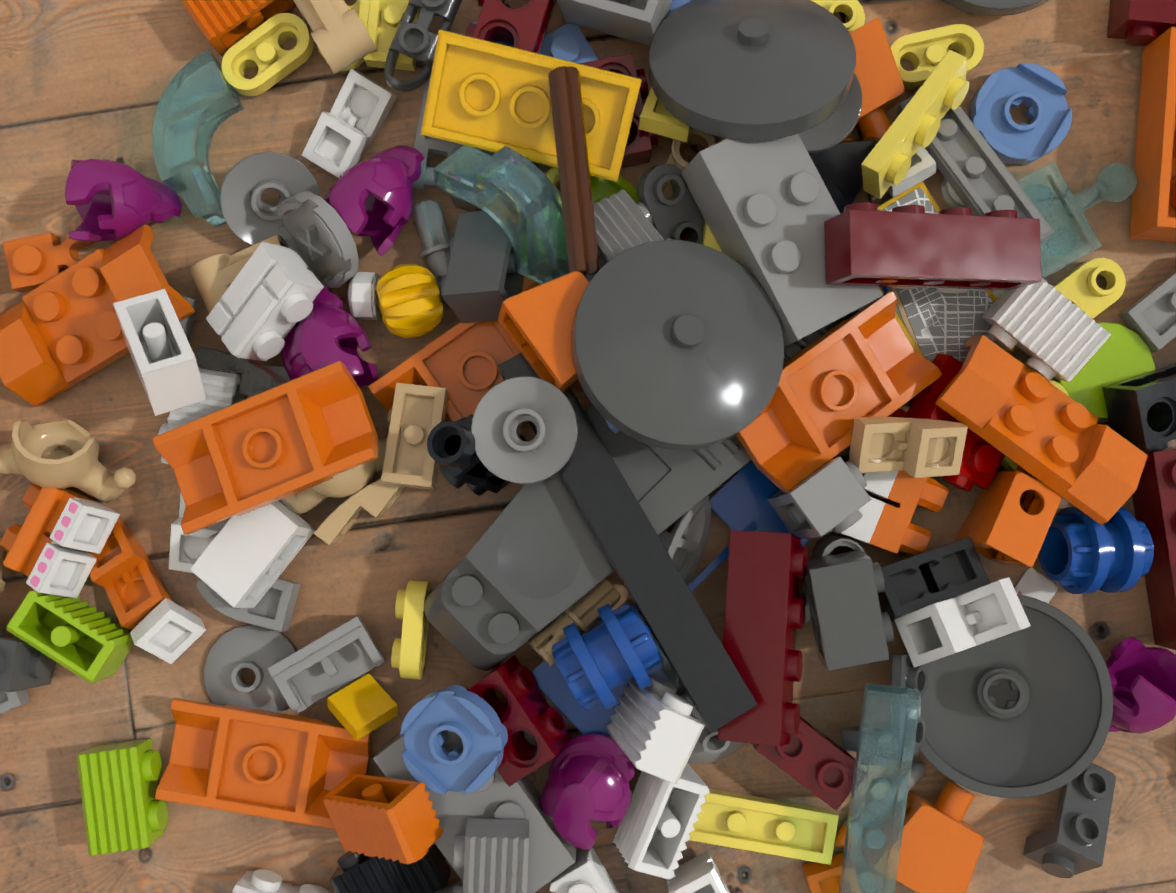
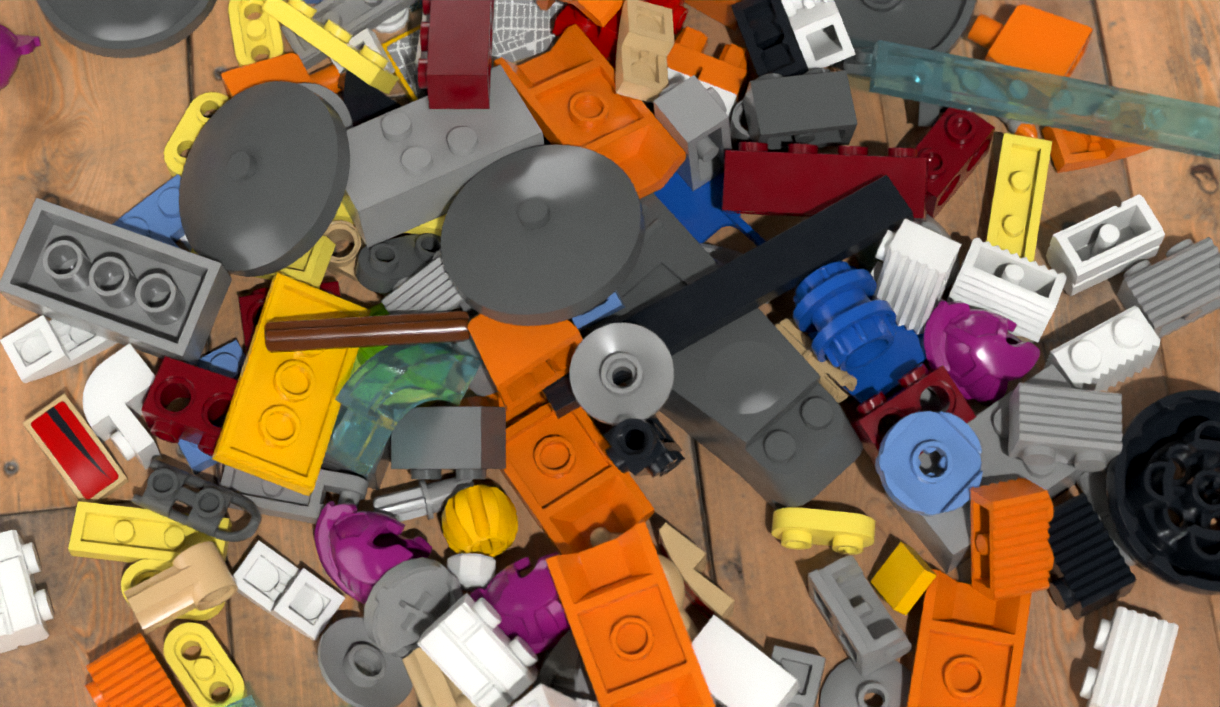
camera: 85 degrees left, 20 degrees down
(413, 417) = (618, 505): tan plate -> none

